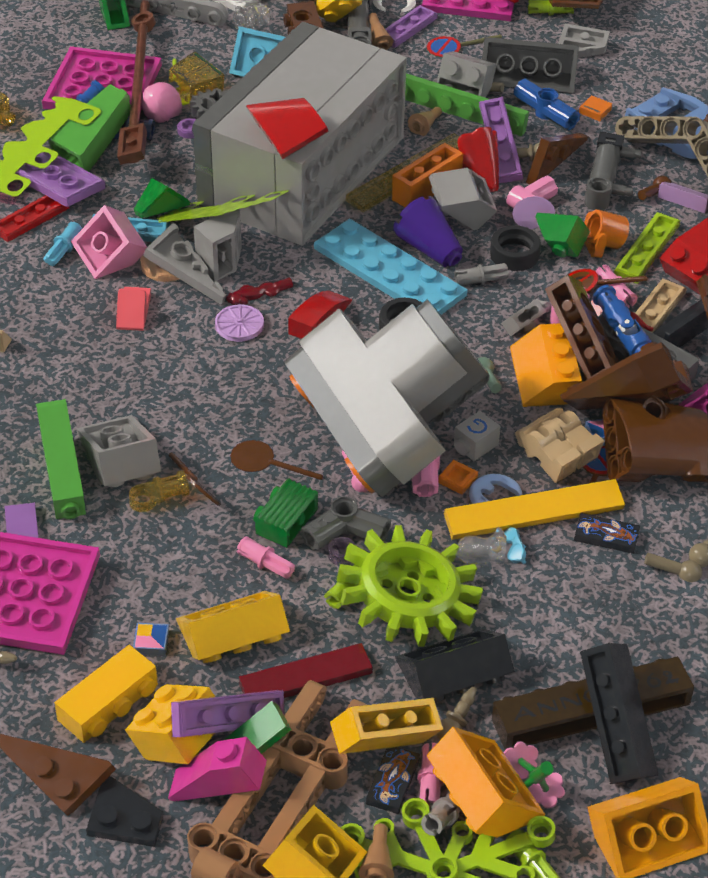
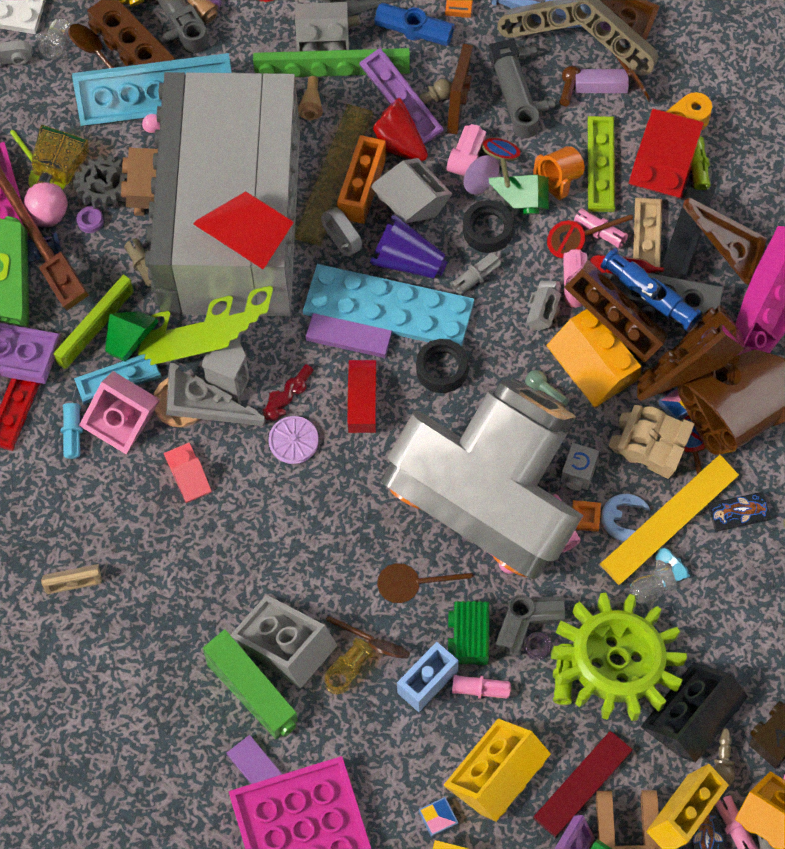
camera: 25 degrees left, 20 degrees up
(134, 184) = (93, 322): none -> lime tile
(220, 523) = (427, 676): none -> light blue brick
(273, 23) = (87, 41): none -> reddish brown piece
(341, 274) = (349, 335): none -> medium lavender tile
(385, 203) = (341, 231): none -> light grey beam
(561, 203) = (504, 151): none -> piece

